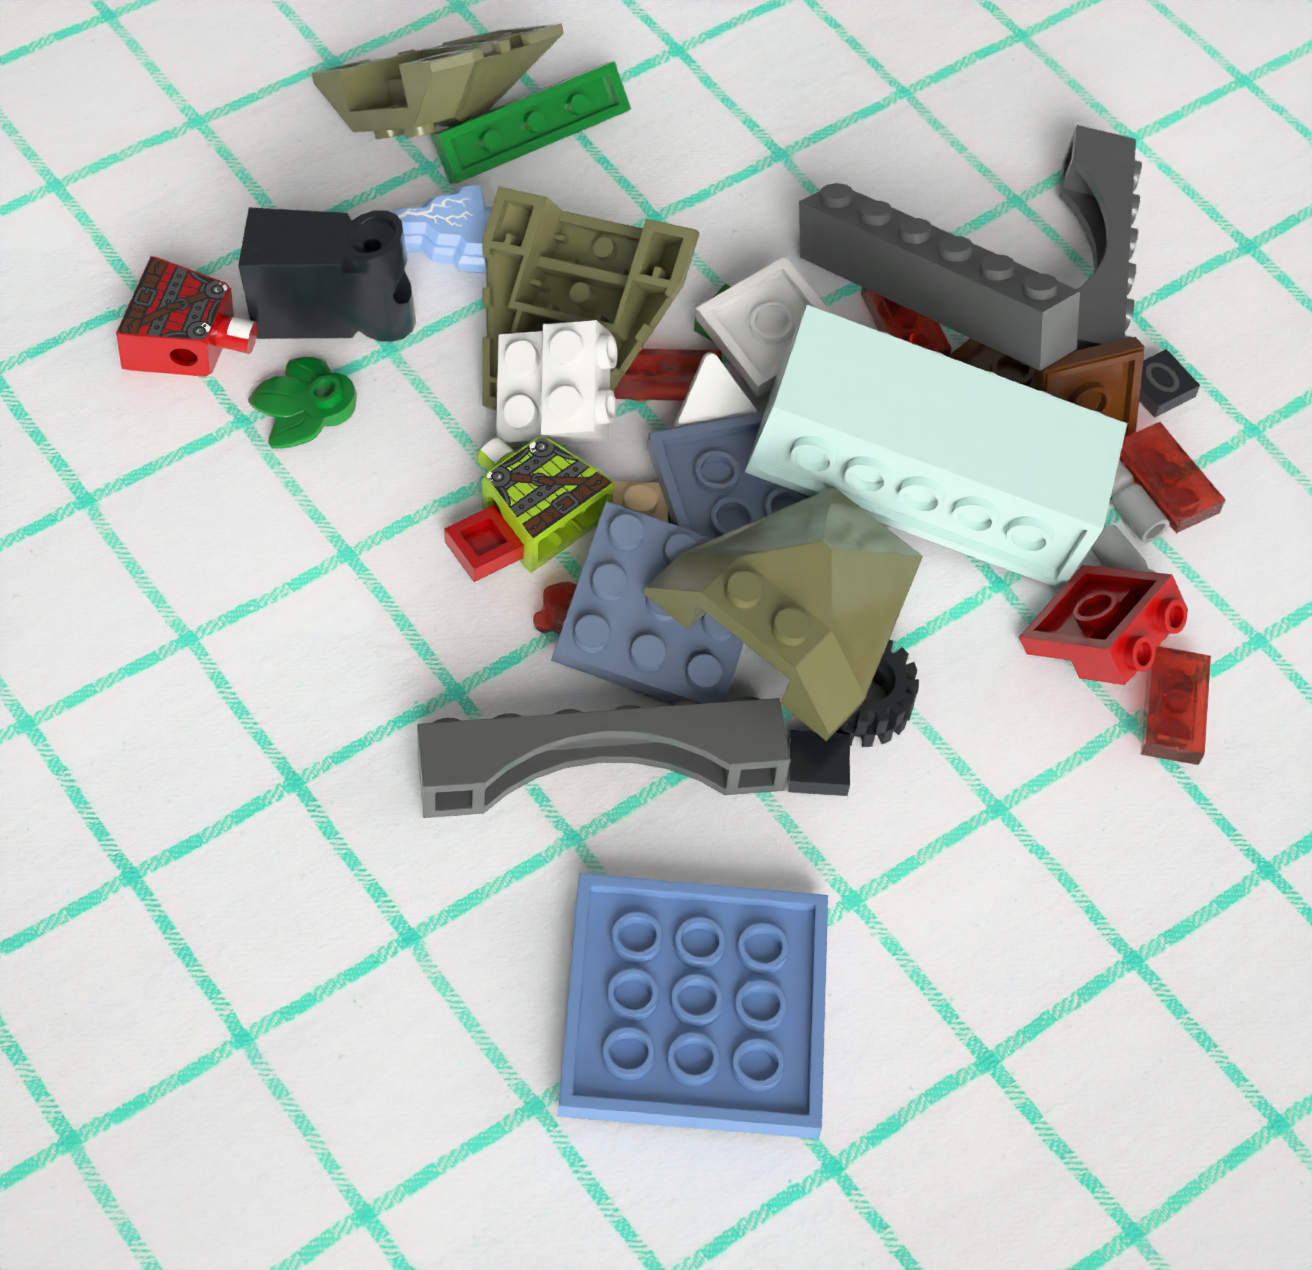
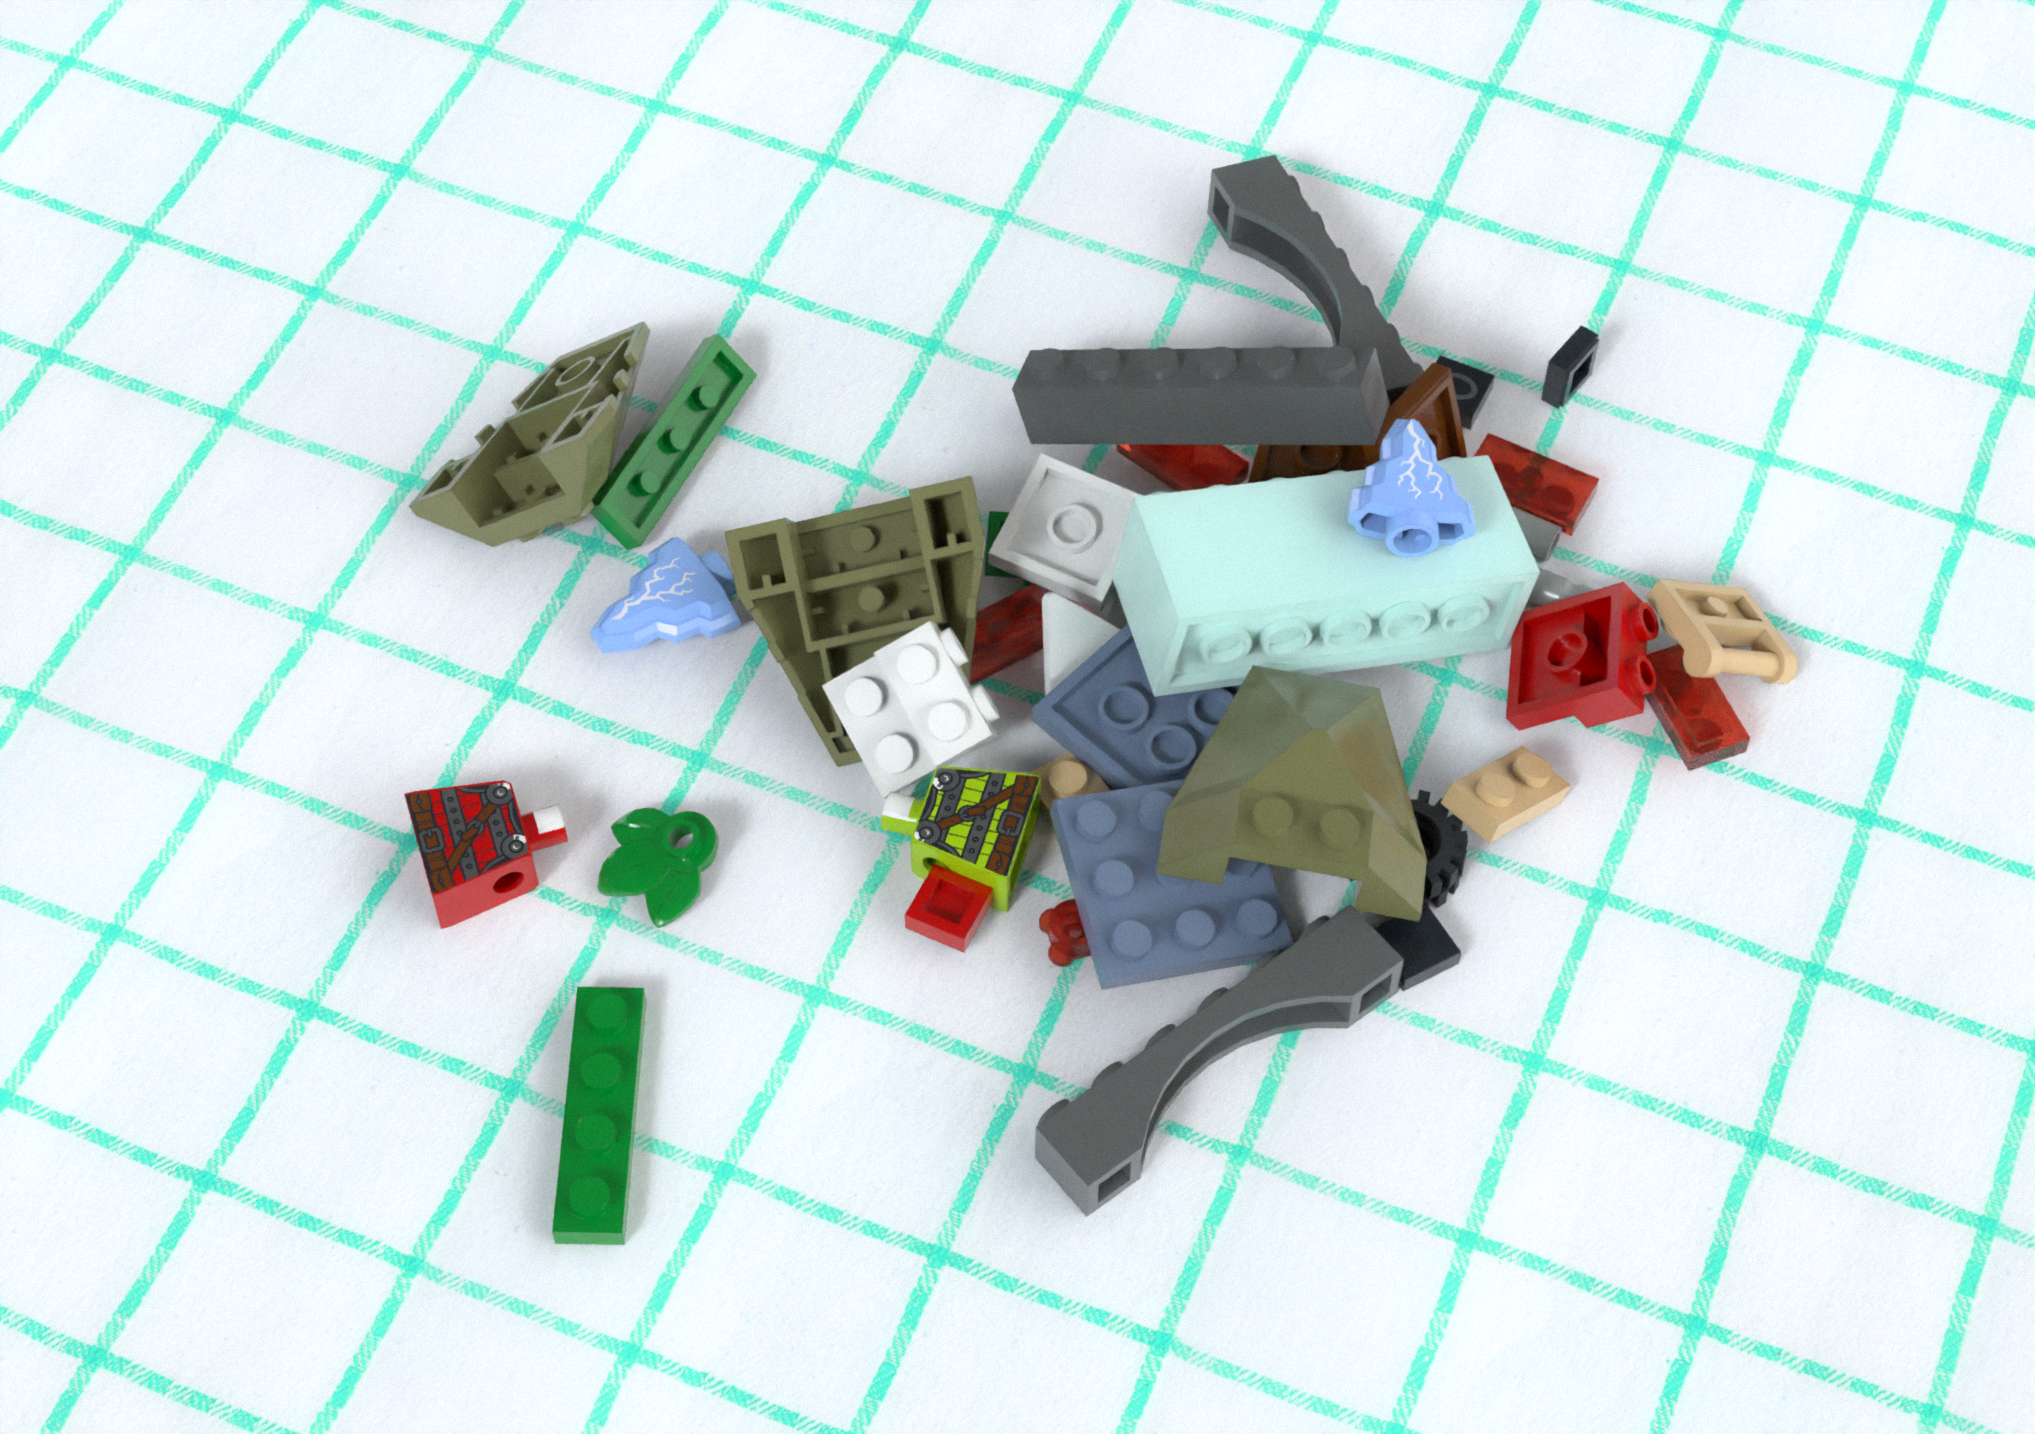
camera: 25 degrees left, 0 degrees up
(127, 551) = (600, 1116): none -> green plate
(326, 275) = (603, 714): black piece -> none
(696, 1007) = (1475, 1247): medium blue plate -> none
(971, 688) = (1505, 794): none -> tan plate
(1029, 415) = (1410, 496): none -> light blue rock
(1249, 649) = (1718, 615): none -> tan plate
(1265, 408) = (1570, 367): none -> black tile

